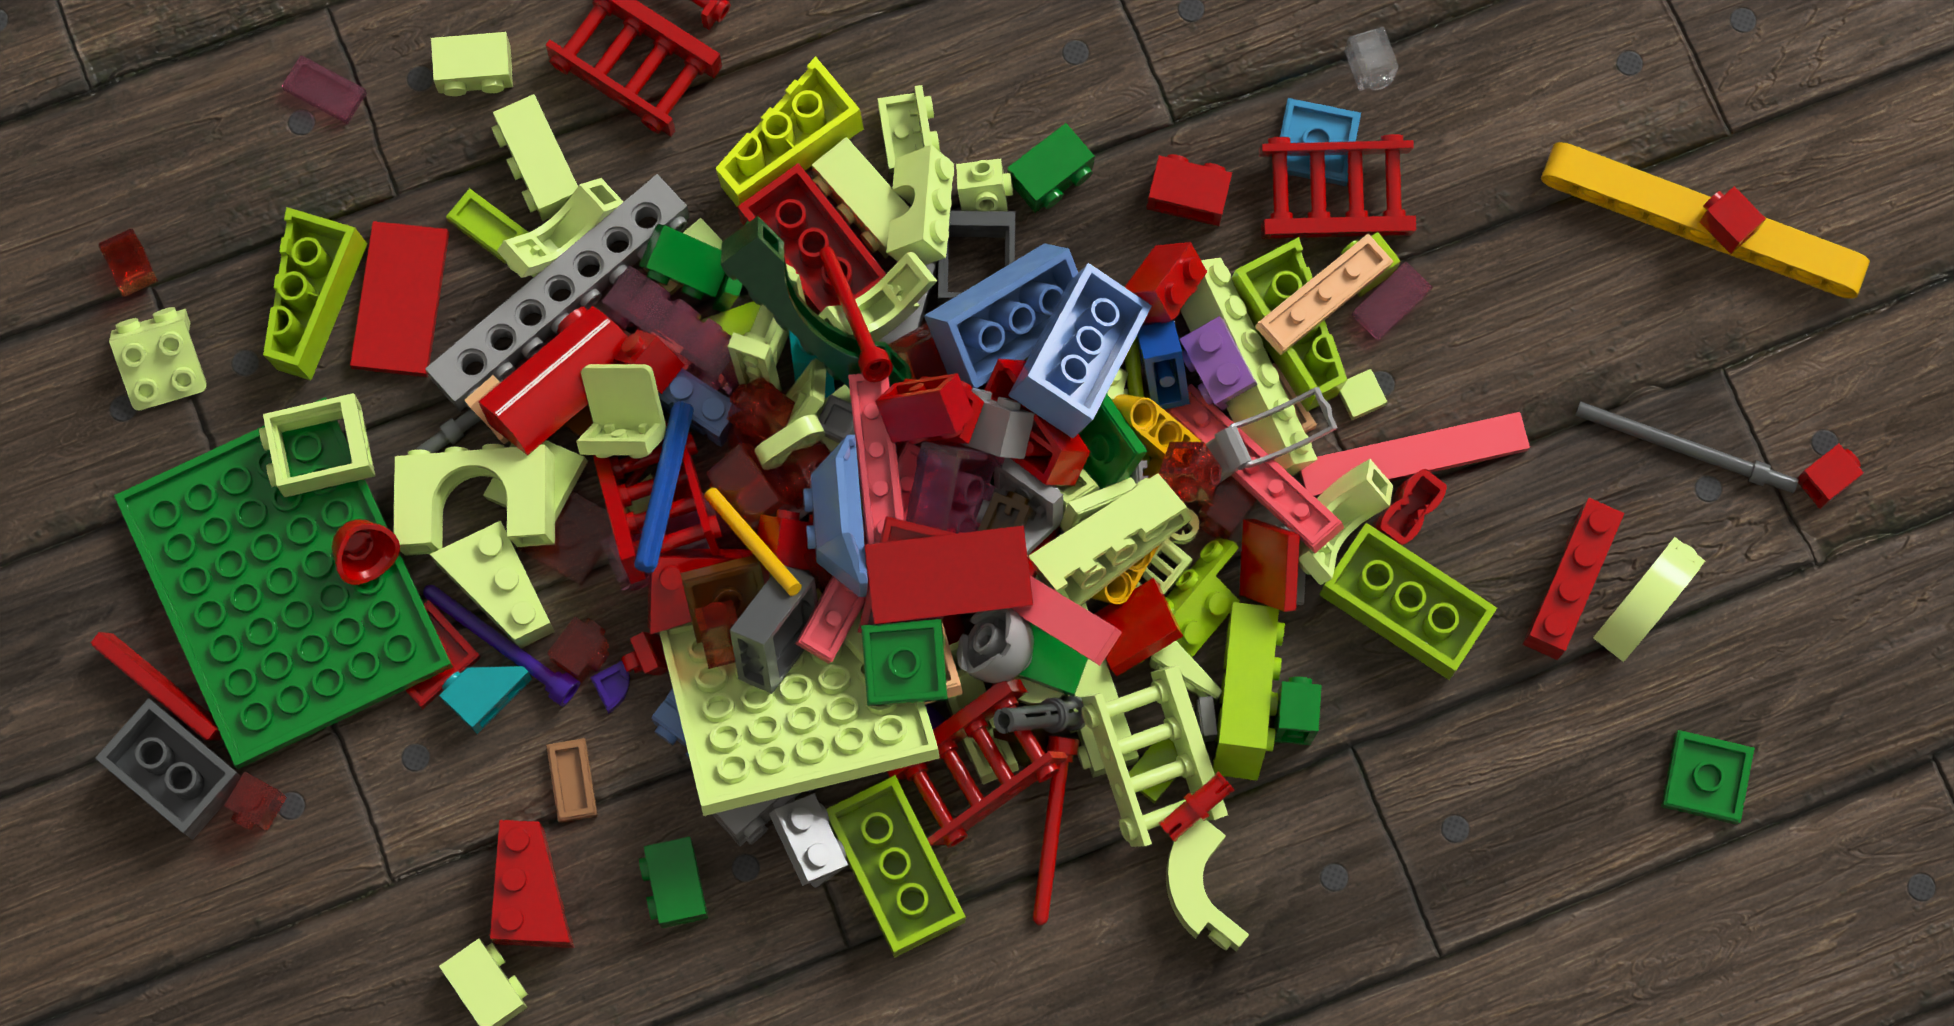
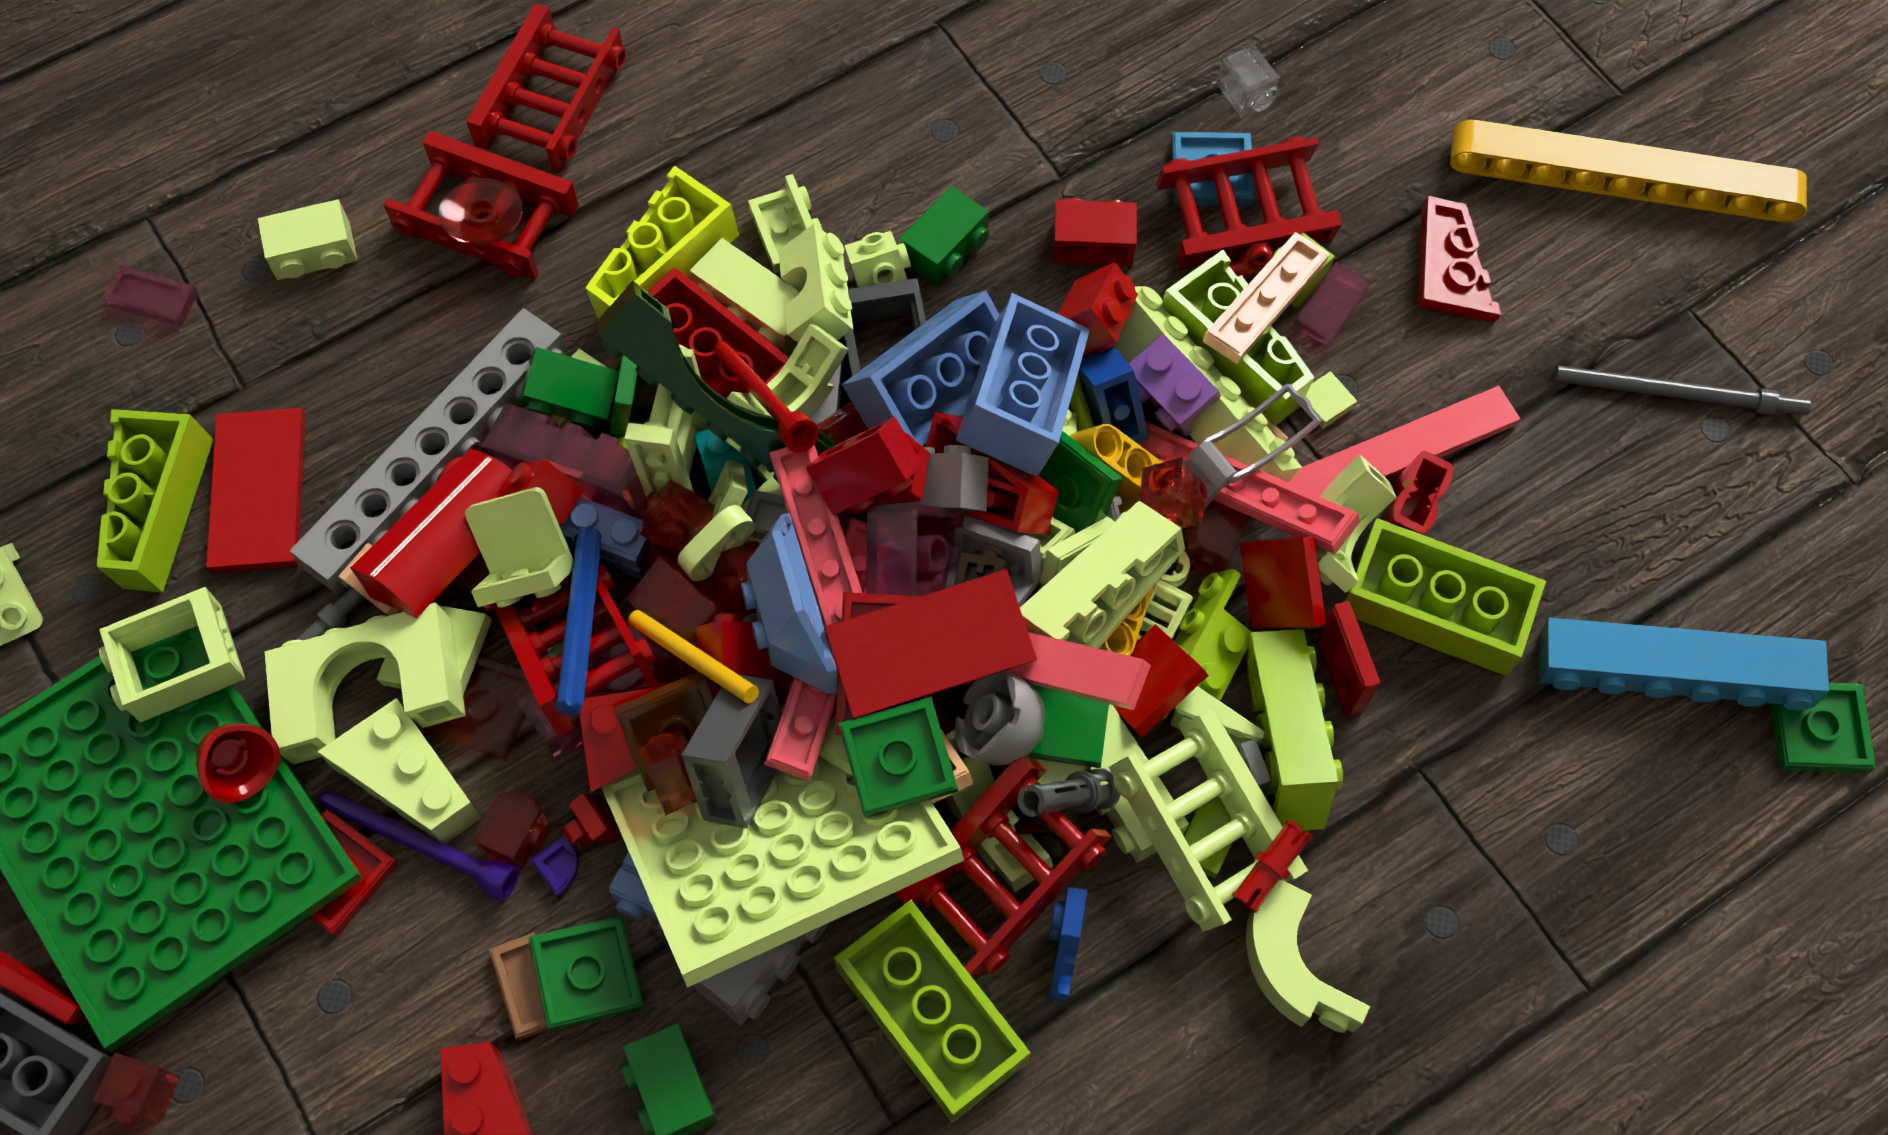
camera: 10 degrees left, 10 degrees down
(483, 222) = (346, 399): lime tile -> none
(483, 692) = (404, 901): teal slope -> none
(534, 156) = (390, 320): yellowish green brick -> none
(582, 212) = (400, 406): yellowish green arch -> none
(621, 780) = (585, 973): none -> green tile
(630, 57) = (480, 211): none -> clear red dish
(809, 840) = (823, 997): light grey bracket -> none
(1017, 823) = (1066, 930): none -> blue wing
(1052, 827) = (1107, 933): red piece -> none
(1297, 711) = (1360, 735): green brick -> none
(1309, 639) = (1348, 659): none -> red tile
(1325, 249) = (1252, 260): none -> red arm
(1511, 282) = (1449, 263): none -> wing
(1573, 579) = (1611, 567): red arch -> none
(1599, 700) = (1683, 663): none -> dark azure brick
(1649, 599) = (1701, 549): yellowish green arch -> none
(1731, 219) = (1662, 154): red brick -> none
(1830, 475) = (1842, 389): red brick -> none

